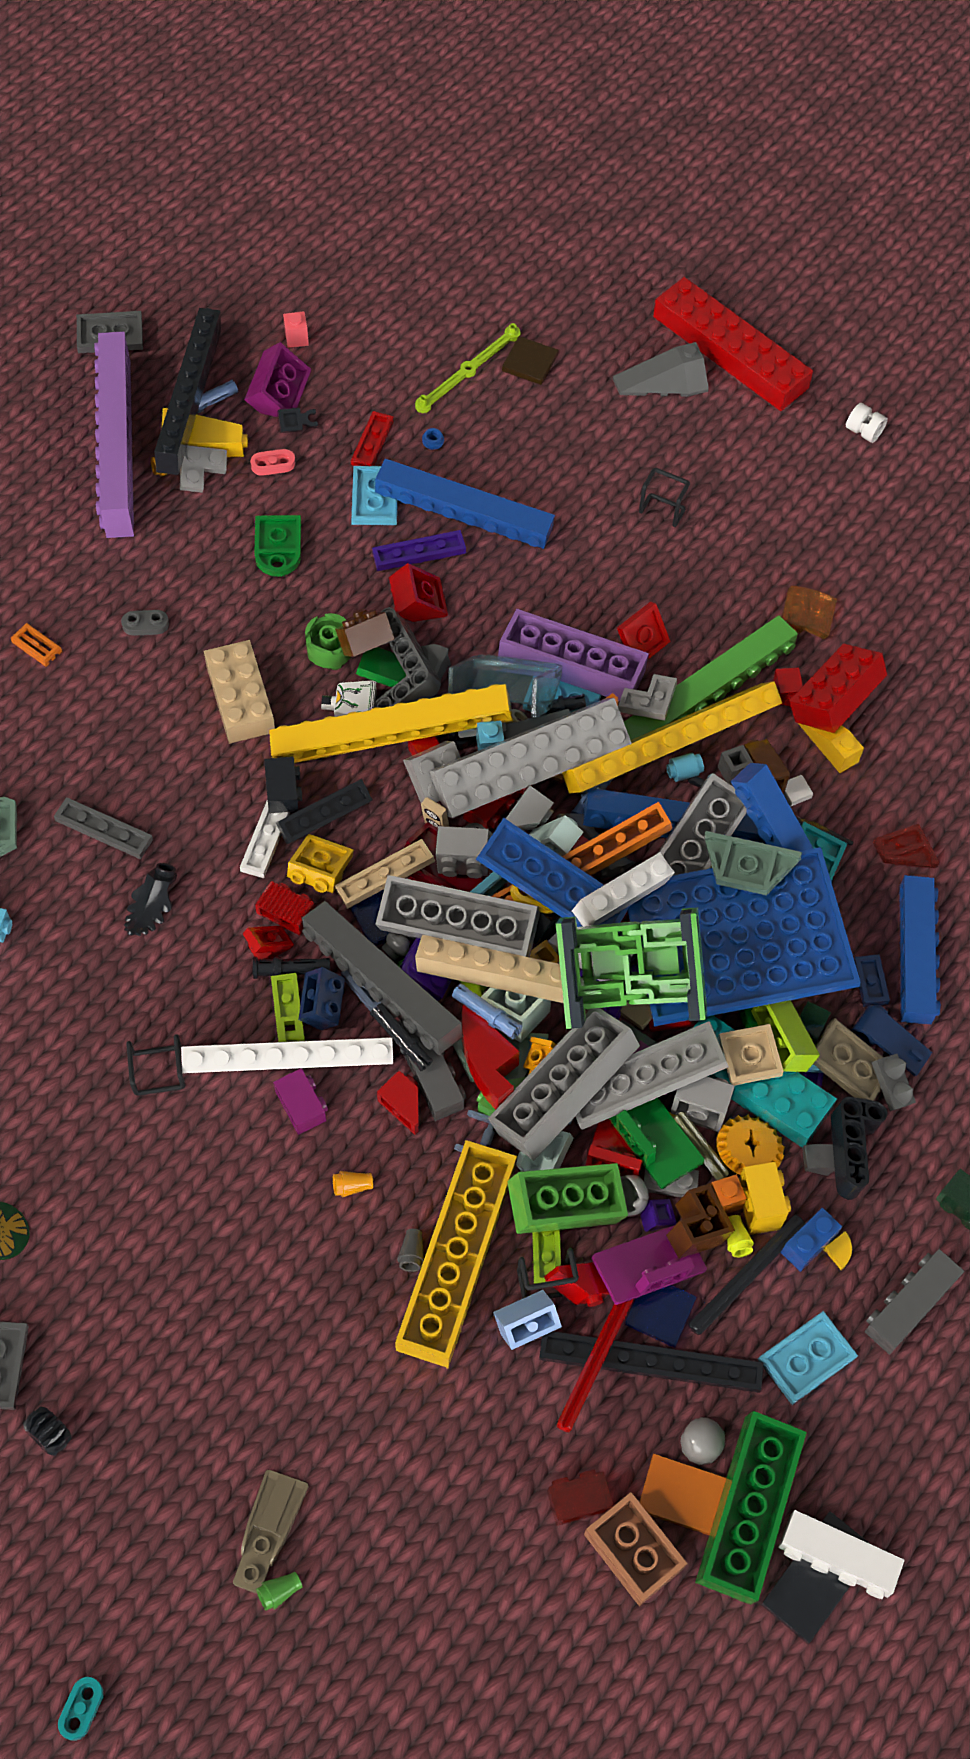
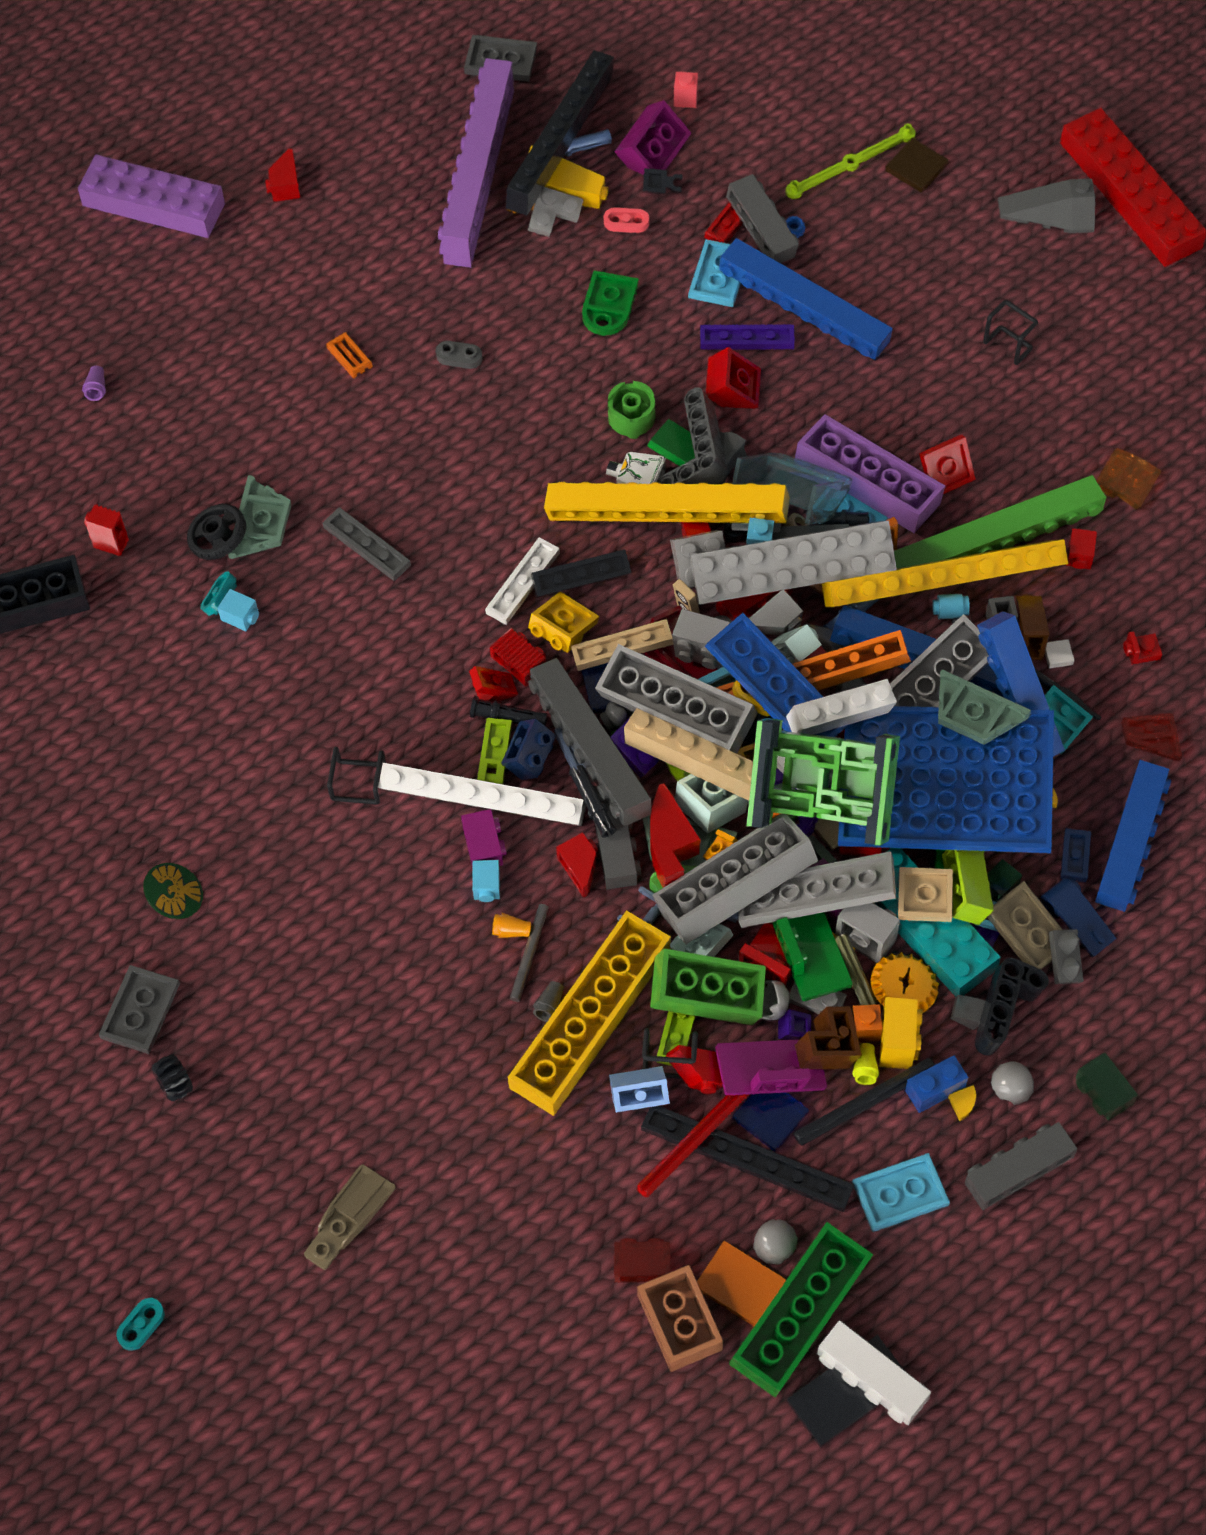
camera: 20 degrees right, 0 degrees up
(150, 900) = (393, 622): black plant -> none
(239, 691) = (530, 440): tan brick -> none
(277, 1590) = (341, 1270): bright green cone -> none
(281, 785) = (545, 538): black brick -> none
(315, 1141) = (486, 880): none -> medium azure brick
(364, 632) = (665, 406): reddish brown brick -> none
(377, 1205) = (529, 953): none -> flat silver bar
(402, 436) = (762, 219): none -> dark grey brick
(495, 1017) = (686, 802): medium blue pin -> none
(652, 703) = (932, 536): light grey plate -> none
(838, 688) = (1130, 560): red brick -> none
(839, 747) = (1110, 610): yellow slope -> none
(870, 768) = (1142, 648): none -> red bracket
(880, 1219) = (1012, 1082): none -> light grey hair

